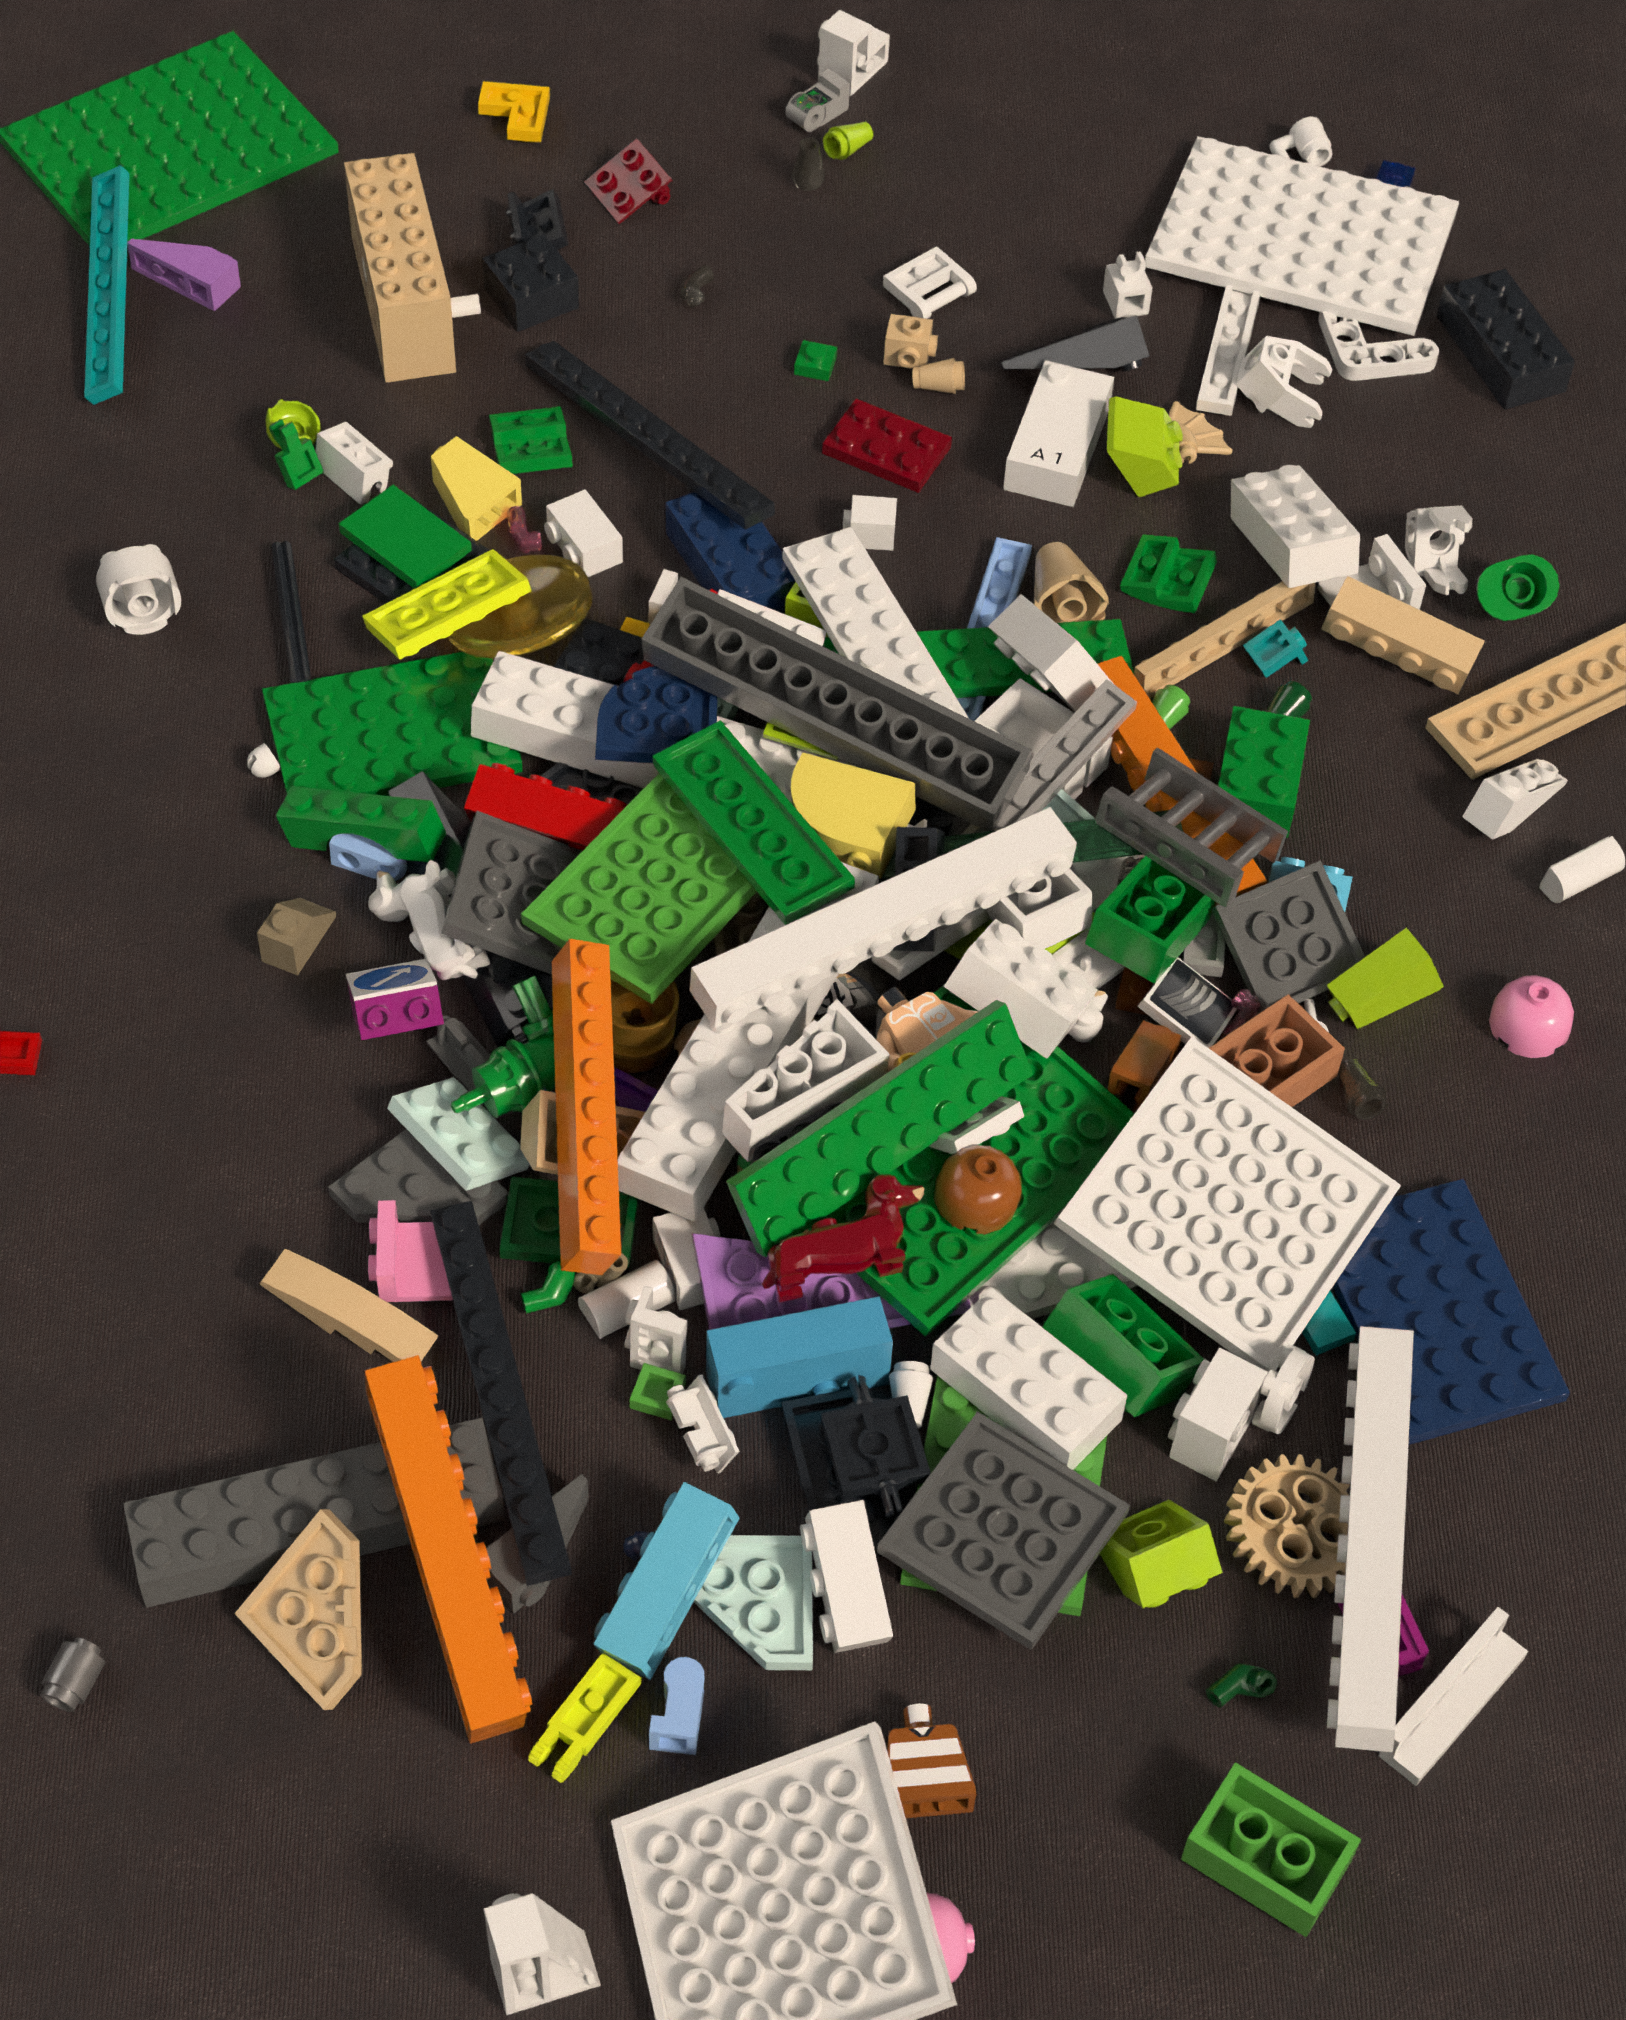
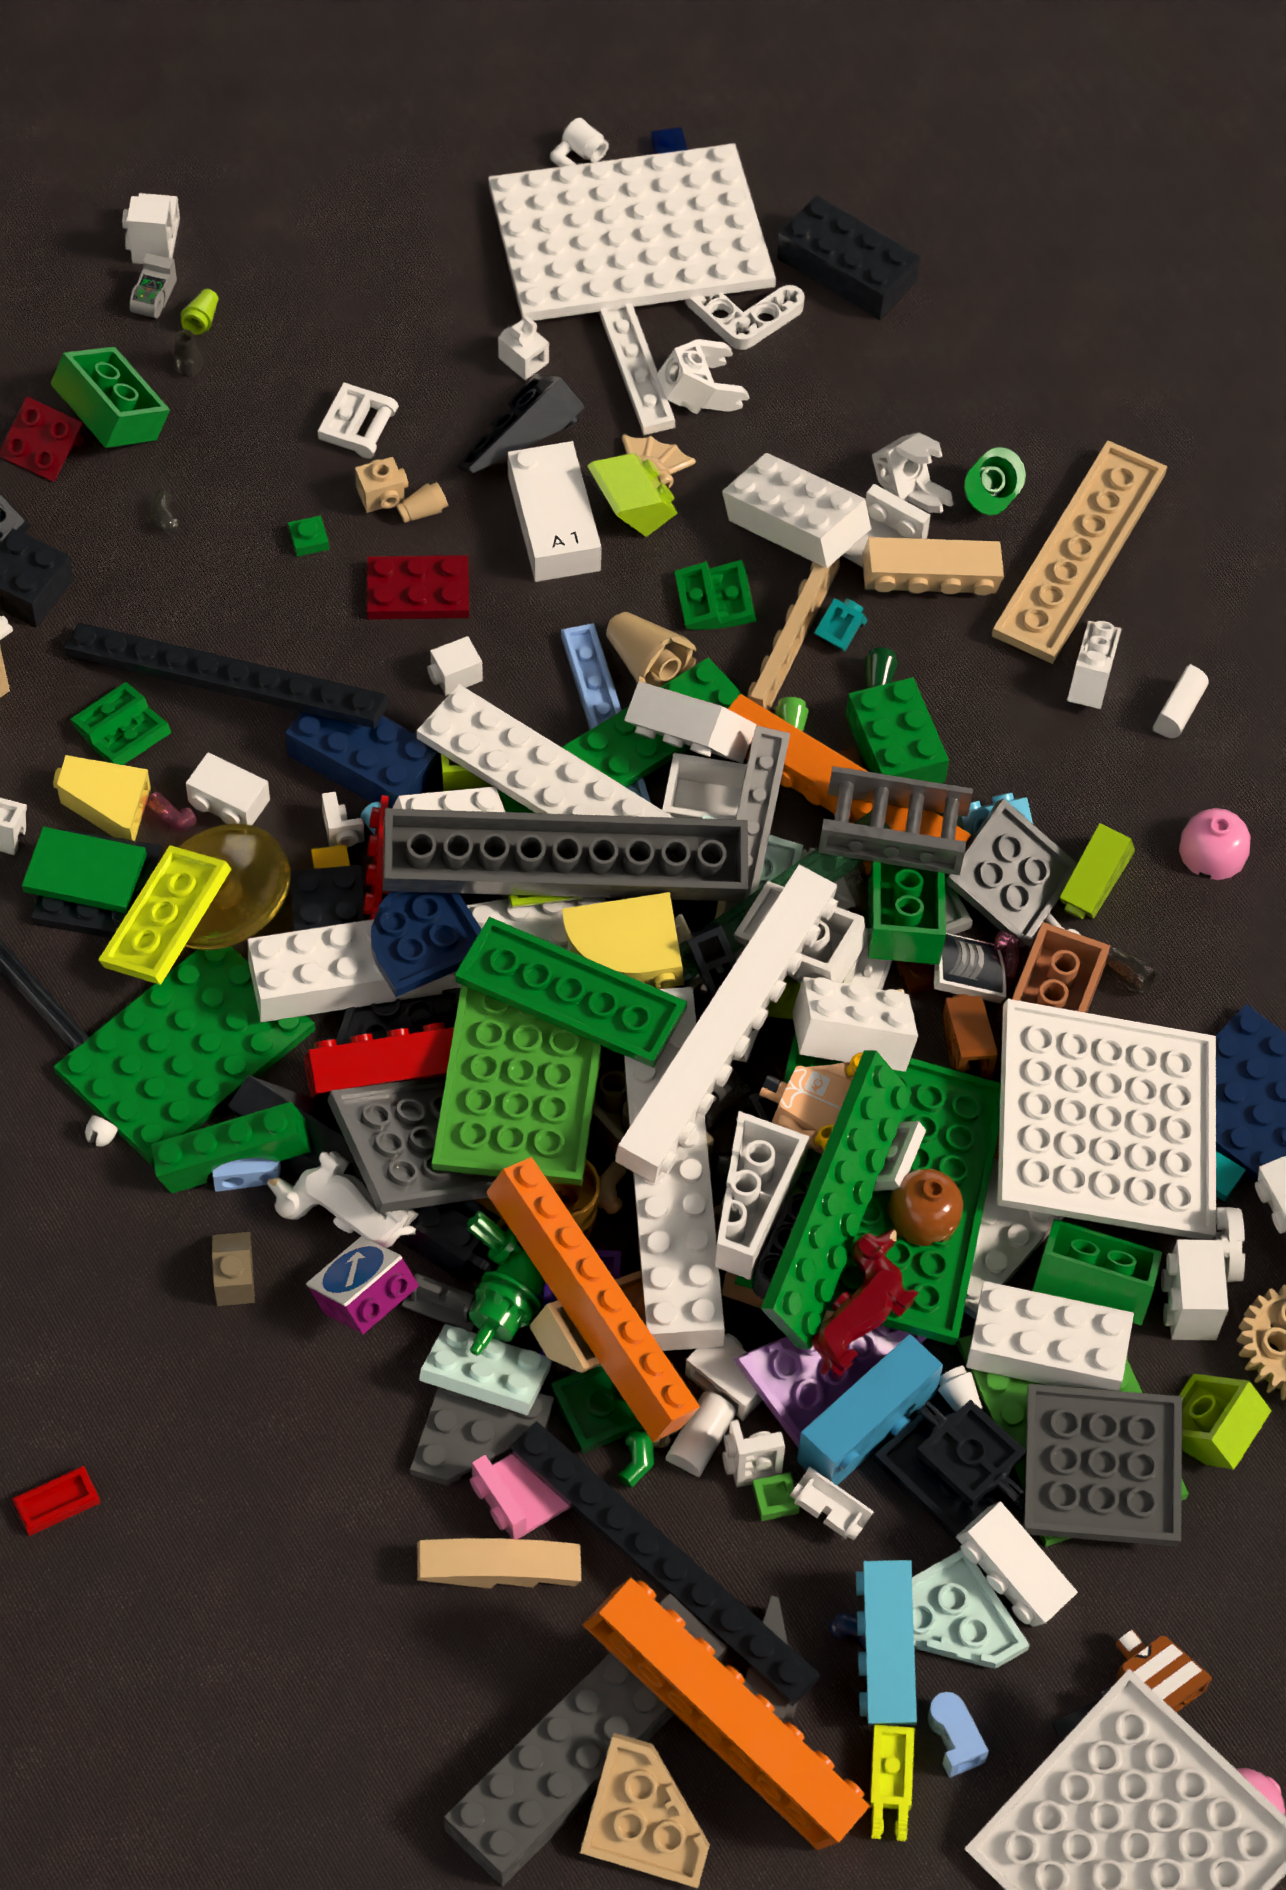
camera: 30 degrees left, 5 degrees up
(709, 167) = (109, 396): none -> green brick

